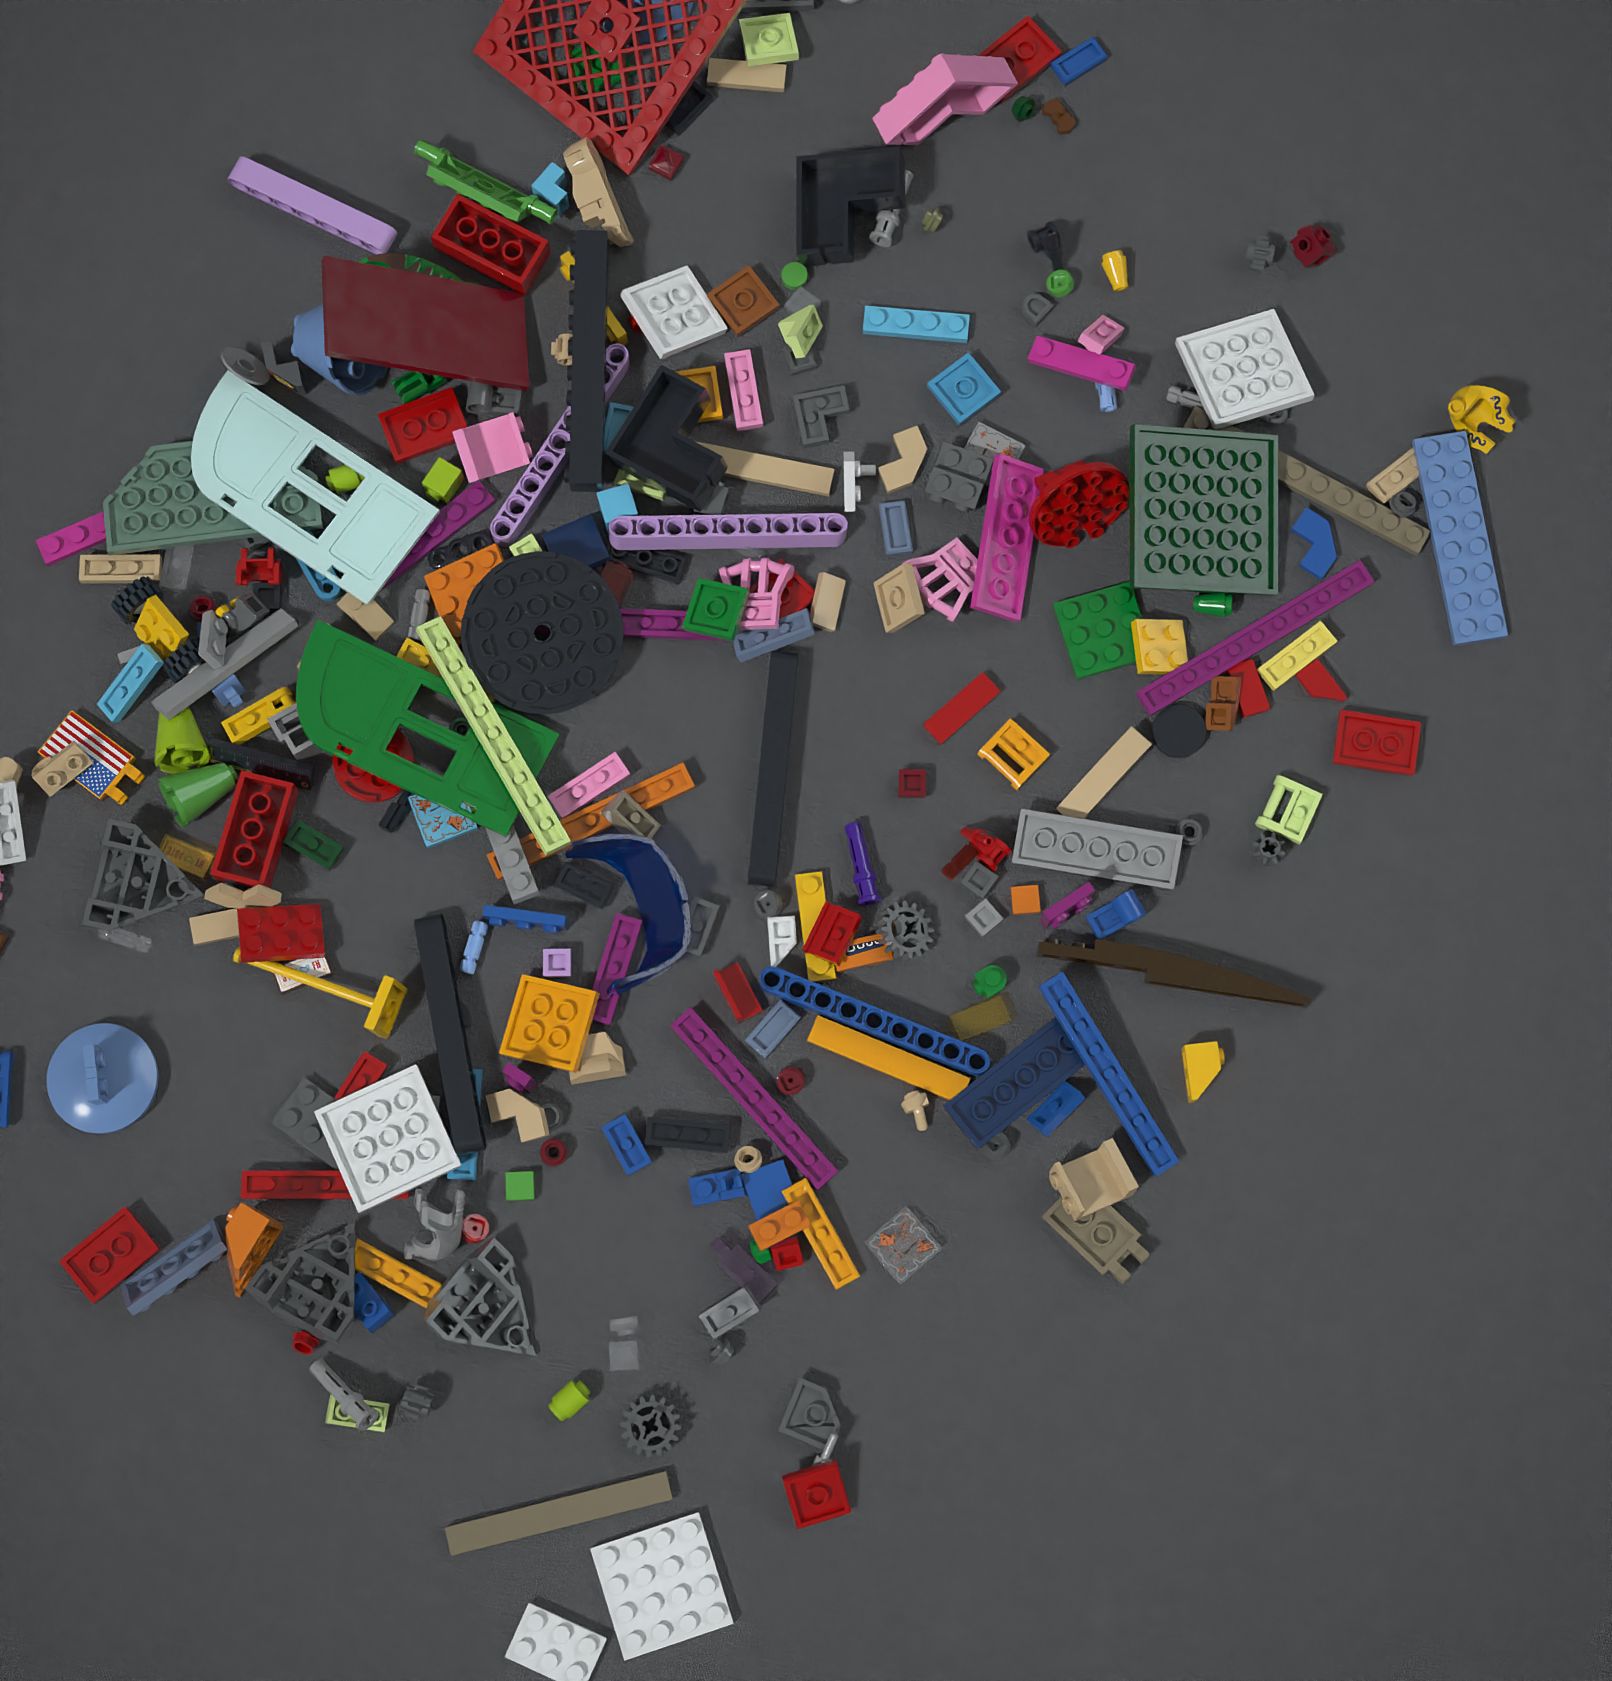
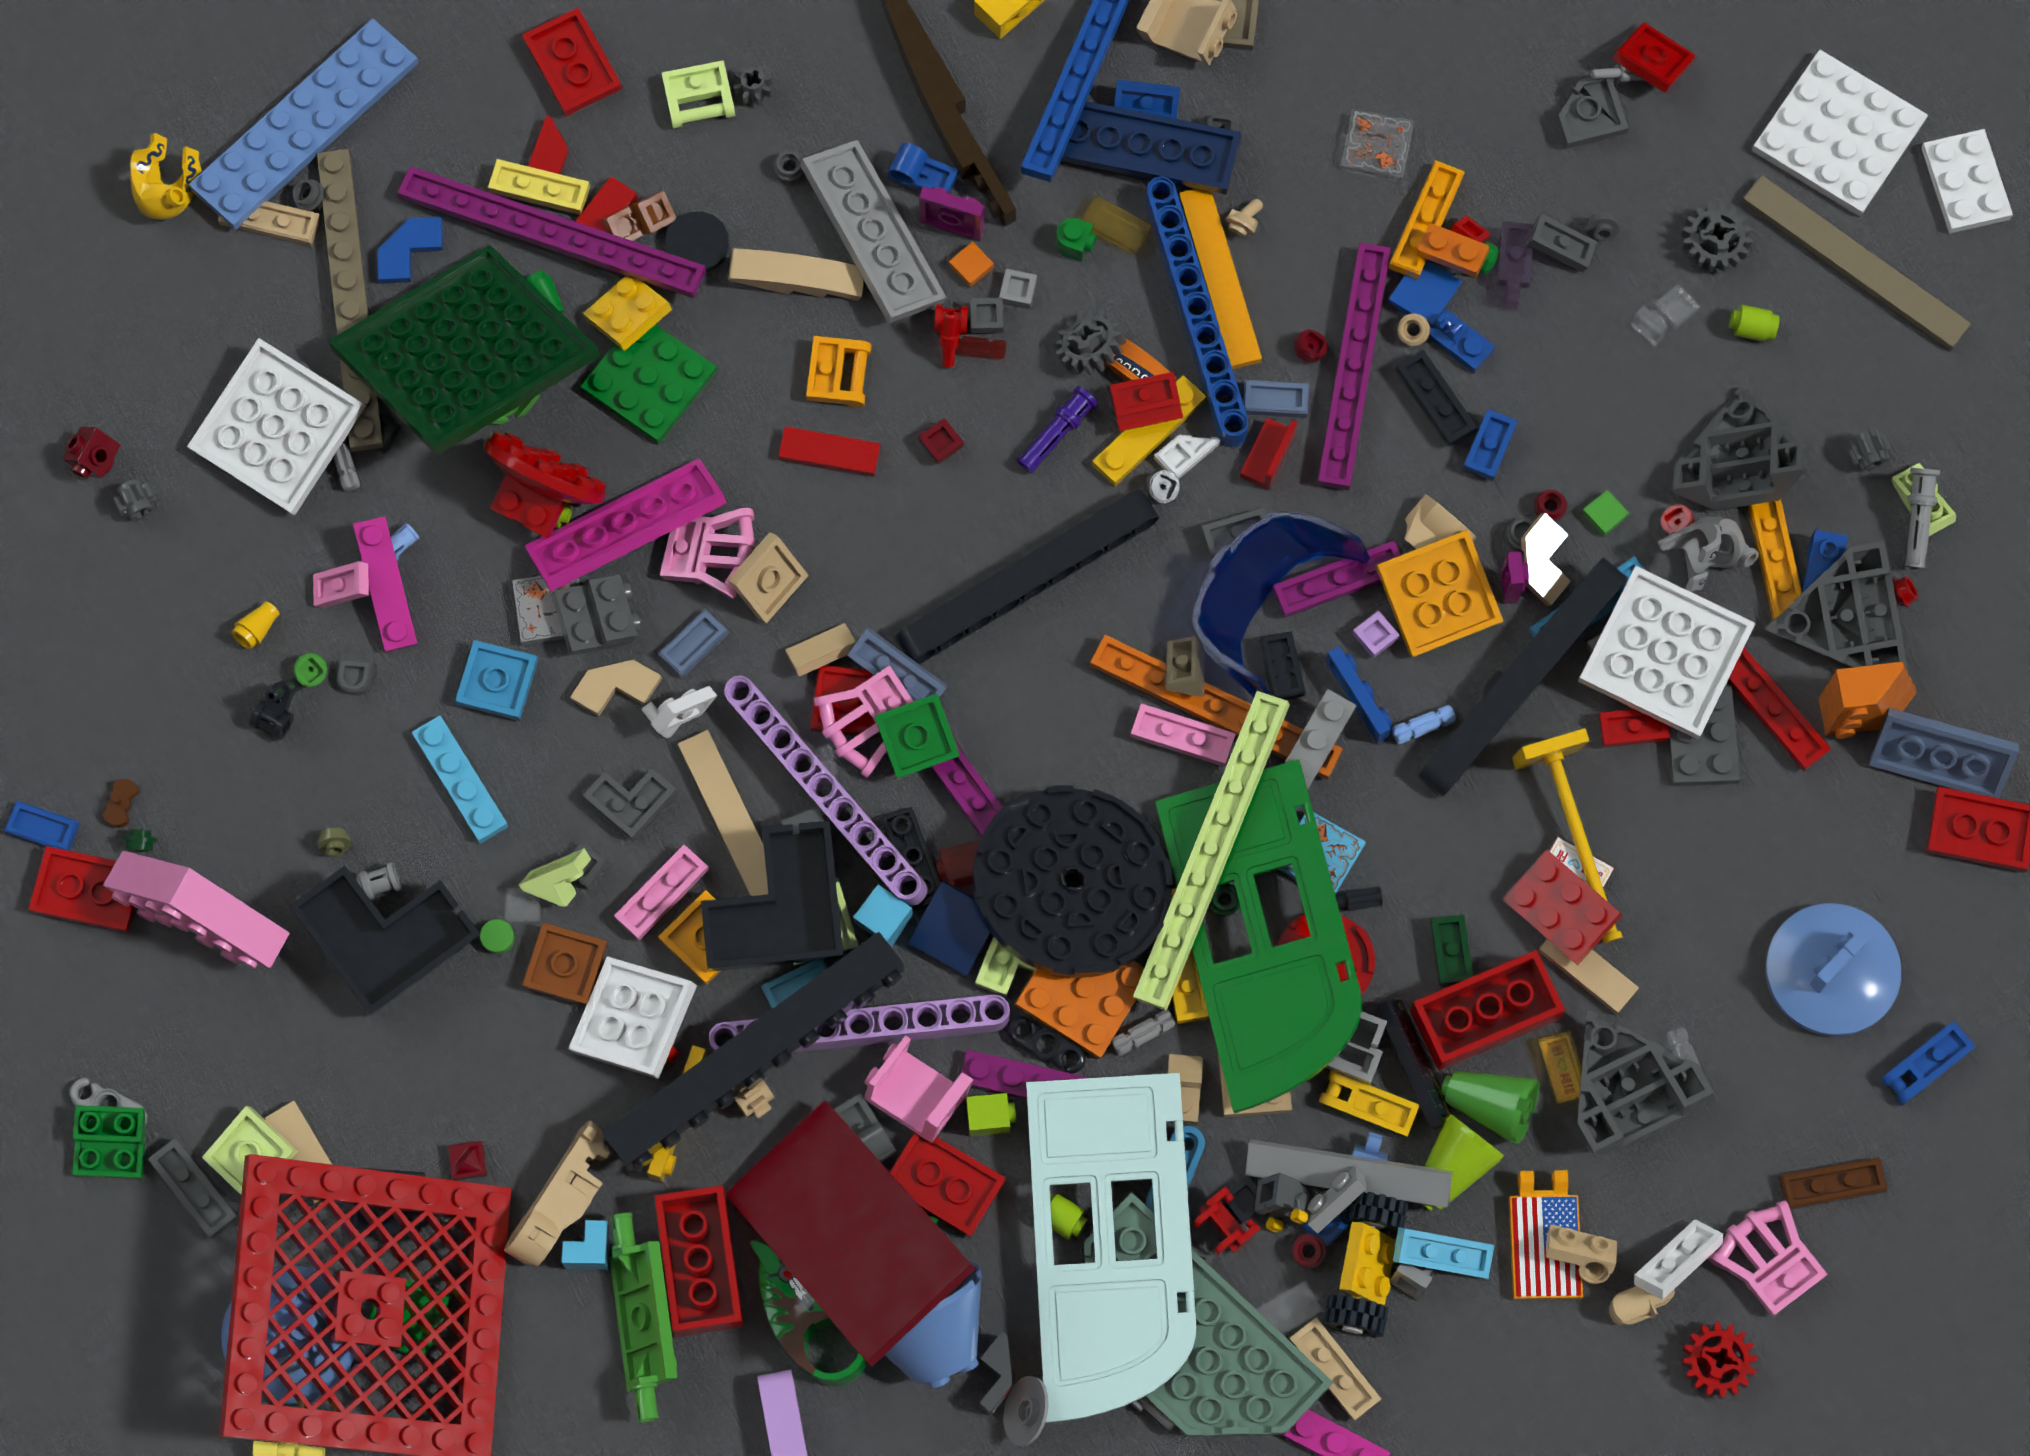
camera: 130 degrees left, 5 degrees down
(234, 898) = (1558, 967): tan tile -> none

